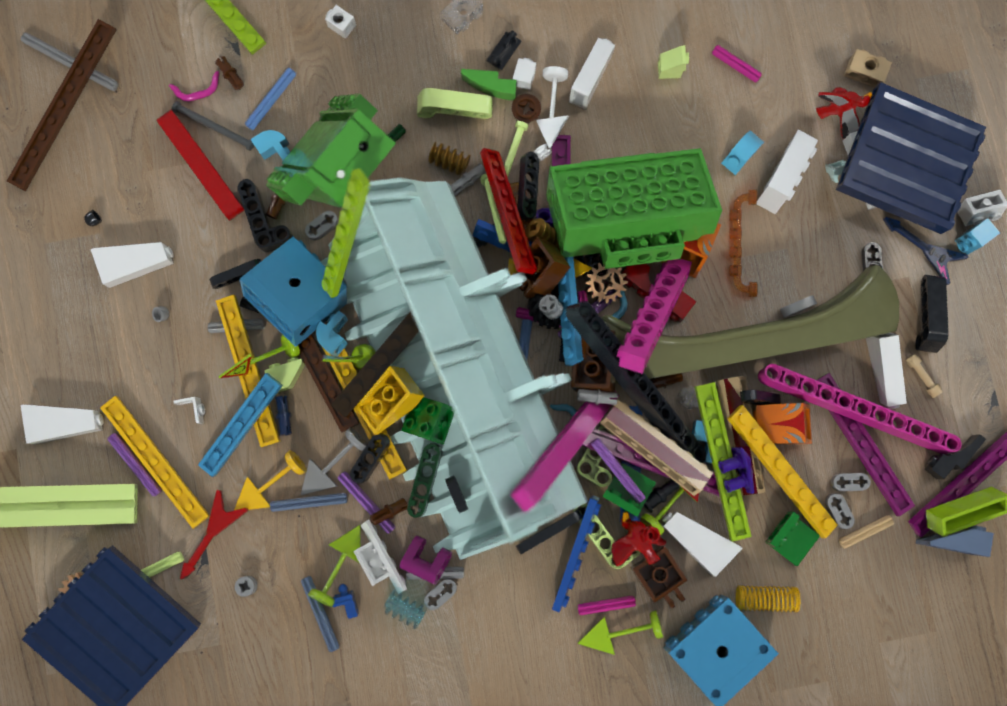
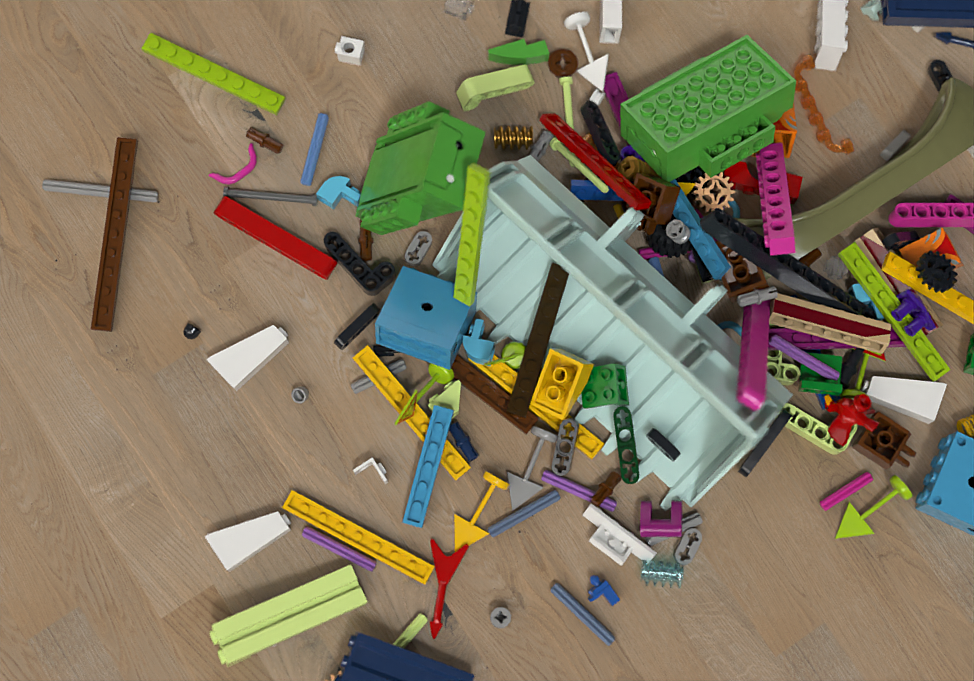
camera: 30 degrees left, 5 degrees down
(346, 545) = (580, 538): lime piece -> none
(525, 73) = (548, 30): white brick -> none
(580, 546) = (801, 461): blue plate -> none
(742, 152) = (781, 25): medium azure brick -> none
(777, 442) = (936, 271): none -> black gear

